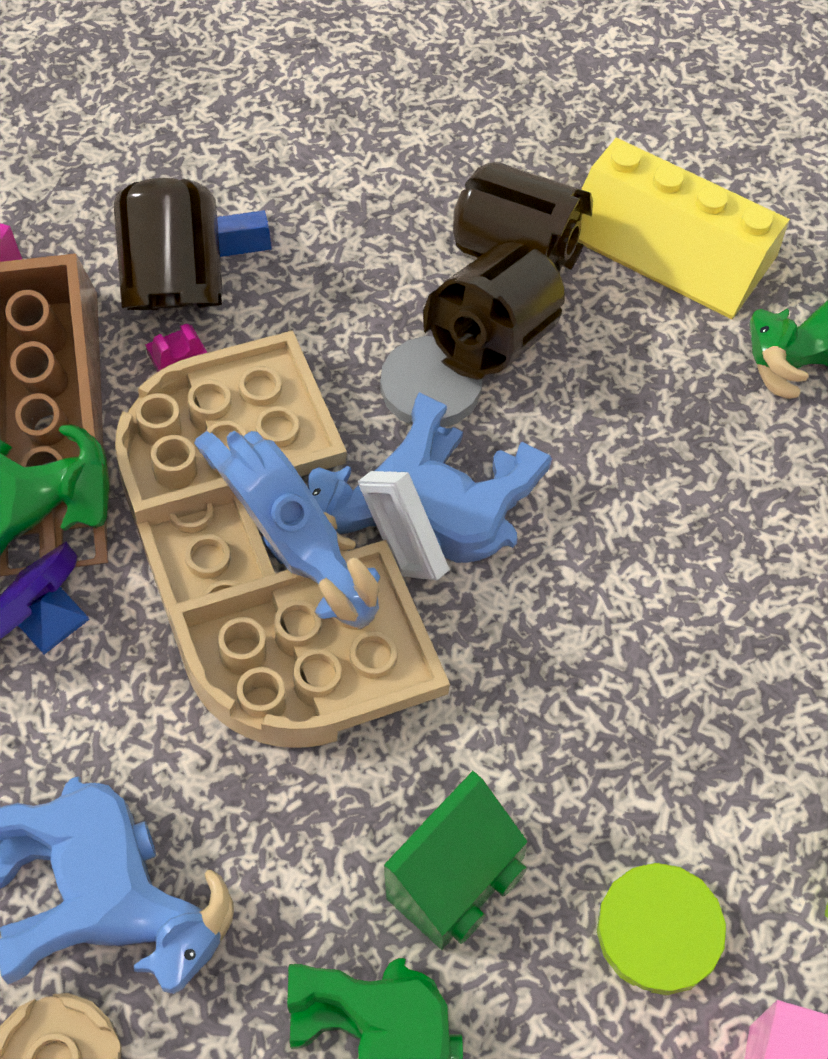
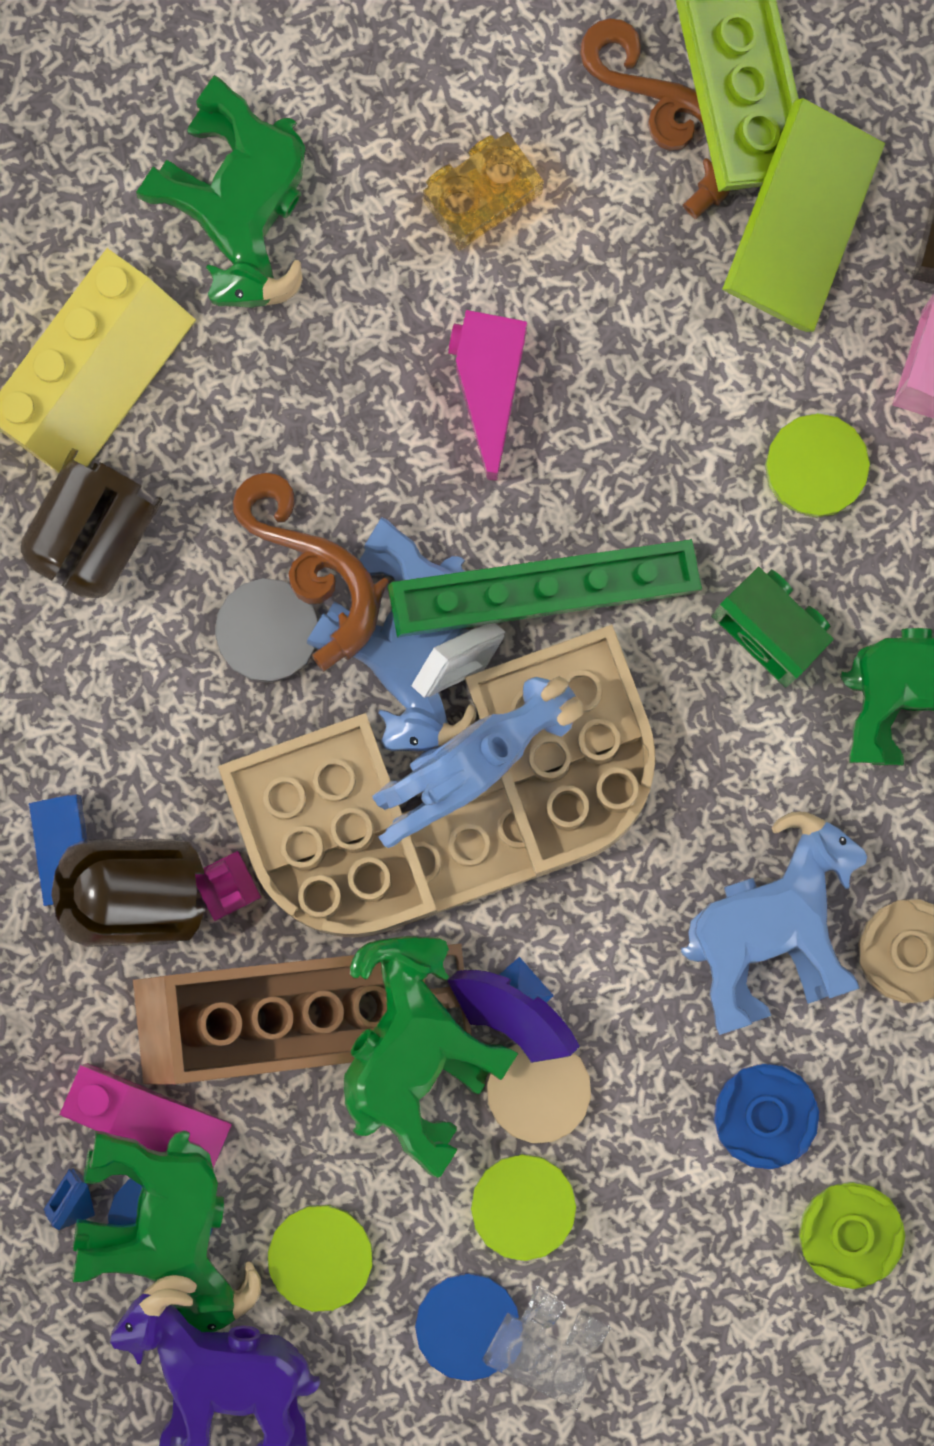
camera: 90 degrees left, 25 degrees up
(484, 393) = (317, 554): none -> dark orange plant
(488, 616) = (544, 588): none -> green plate
(494, 309) = (243, 580): dark brown cylinder -> none
(713, 560) = (488, 370): none -> dark pink slope

